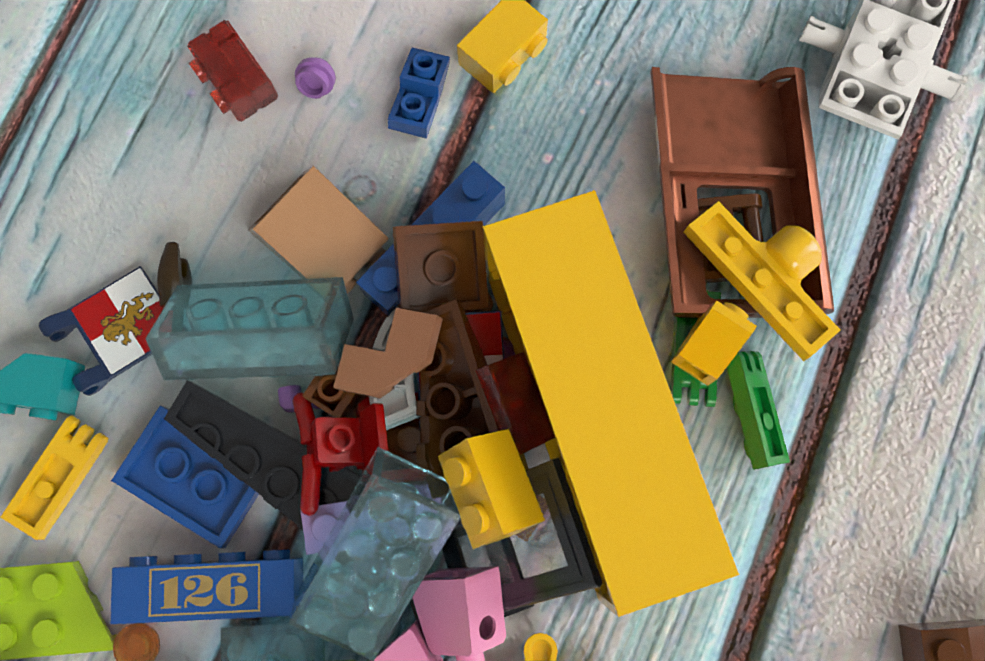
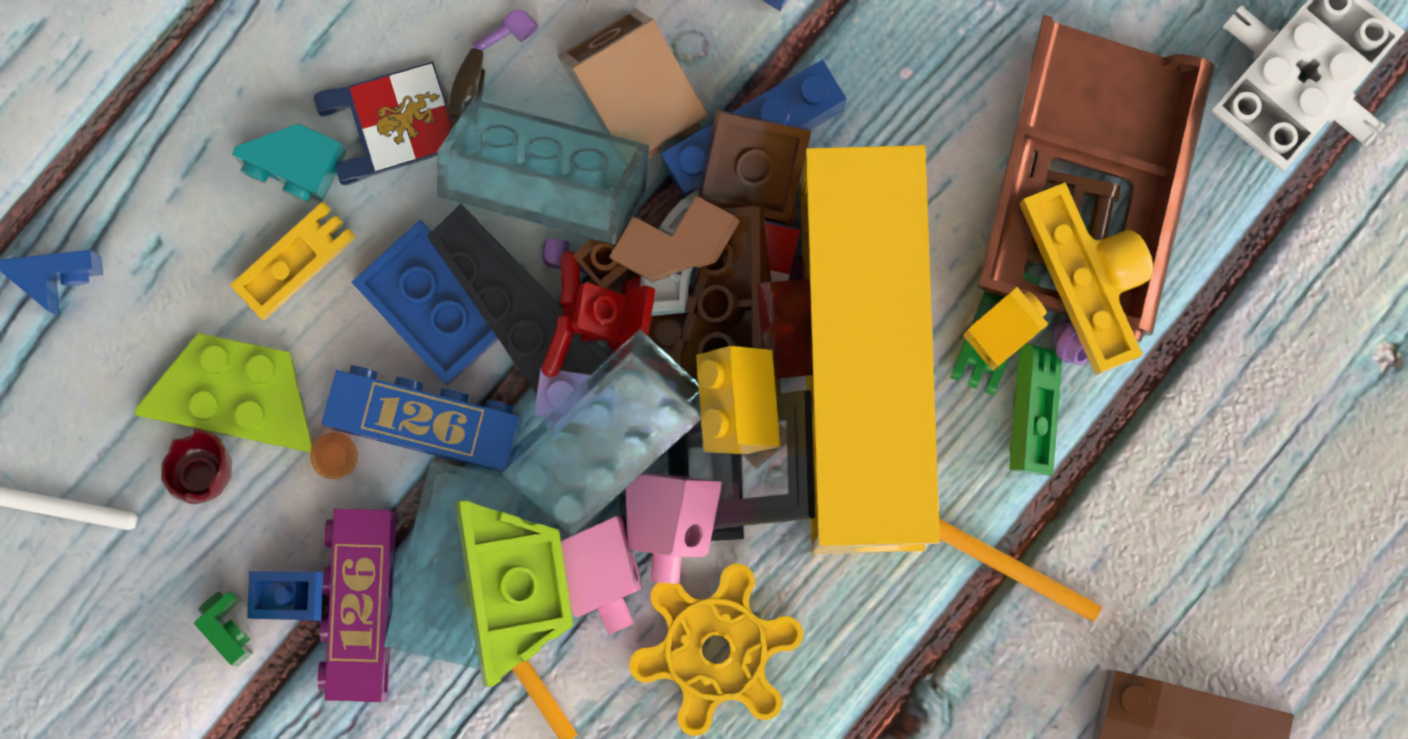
camera: 15 degrees right, 5 degrees up
(202, 212) = (516, 22): none -> medium lavender hand
(766, 341) = (1067, 343): none -> medium lavender plate
(802, 561) = (1019, 571): none -> light orange bar

